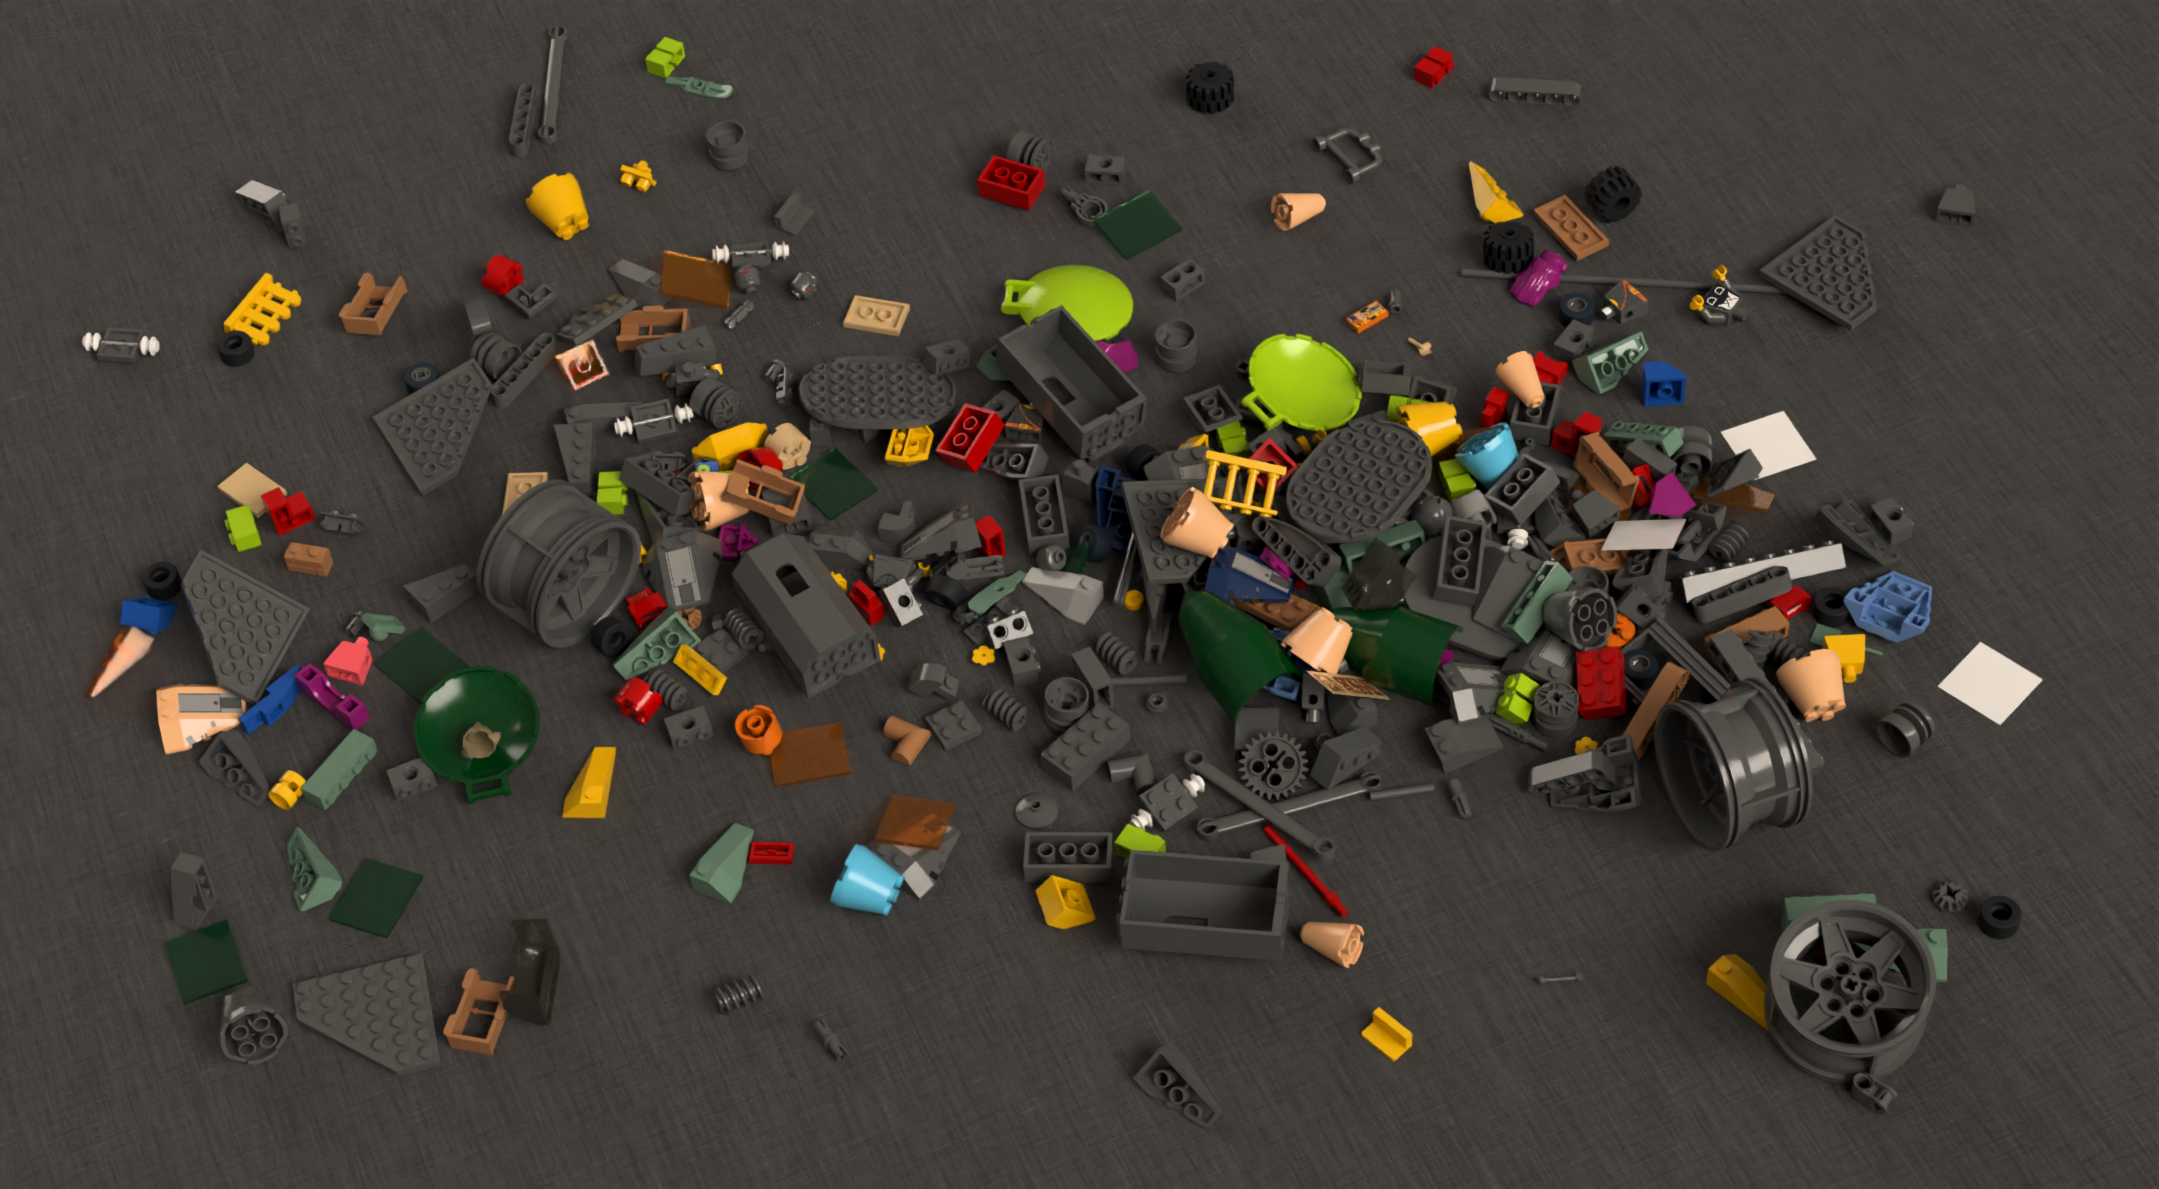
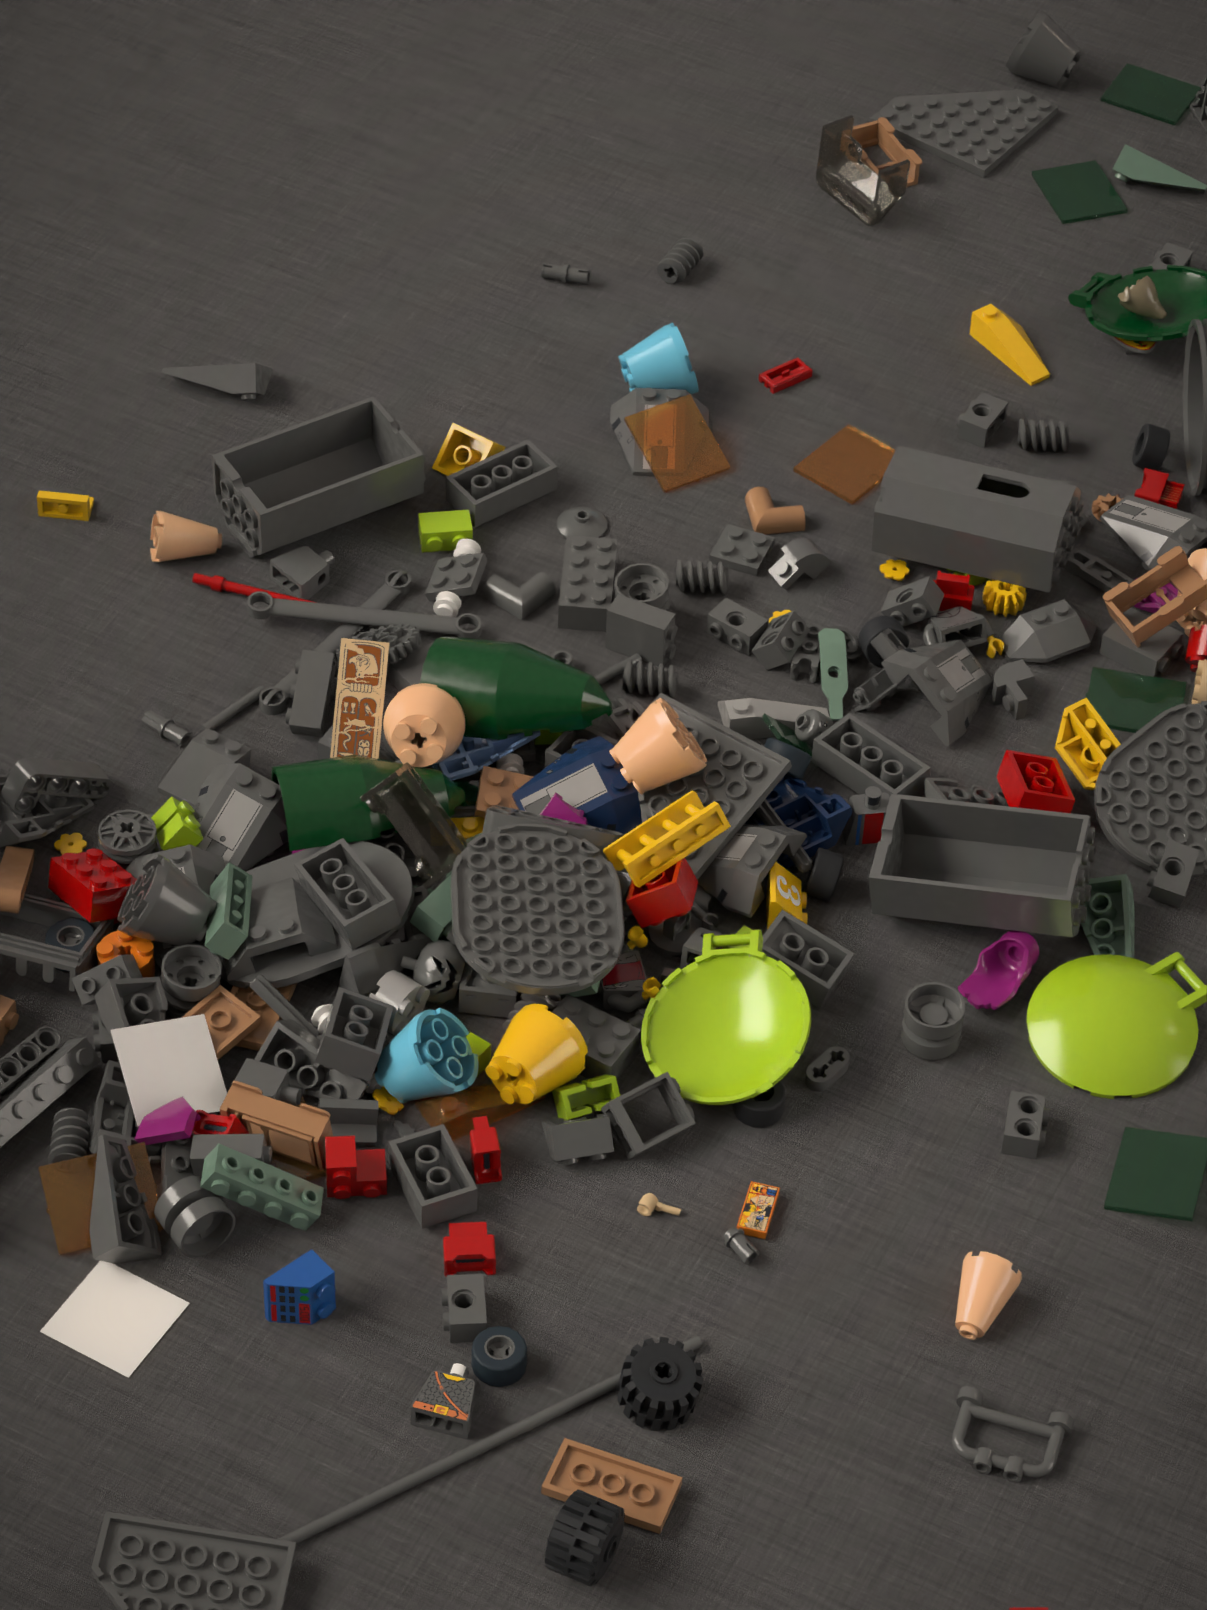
camera: 135 degrees right, 5 degrees down
(637, 700) = (1053, 401): red brick -> none
(656, 644) = (1104, 467): sand green wedge -> none
(699, 669) = (1036, 469): yellow plate -> none
(723, 865) = (813, 340): sand green wedge -> none
(758, 730) = (910, 431): orange brick -> none
(991, 537) = (896, 705): red piece -> none
(1490, 198) = (754, 1469): yellow wedge -> none
(1522, 378) = (467, 1159): light nougat cone -> none
(1538, 277) = (586, 1378): magenta hair -> none
(1606, 365) = (401, 1293): sand green wedge -> none
(1721, 302) = (316, 1468): torso -> none

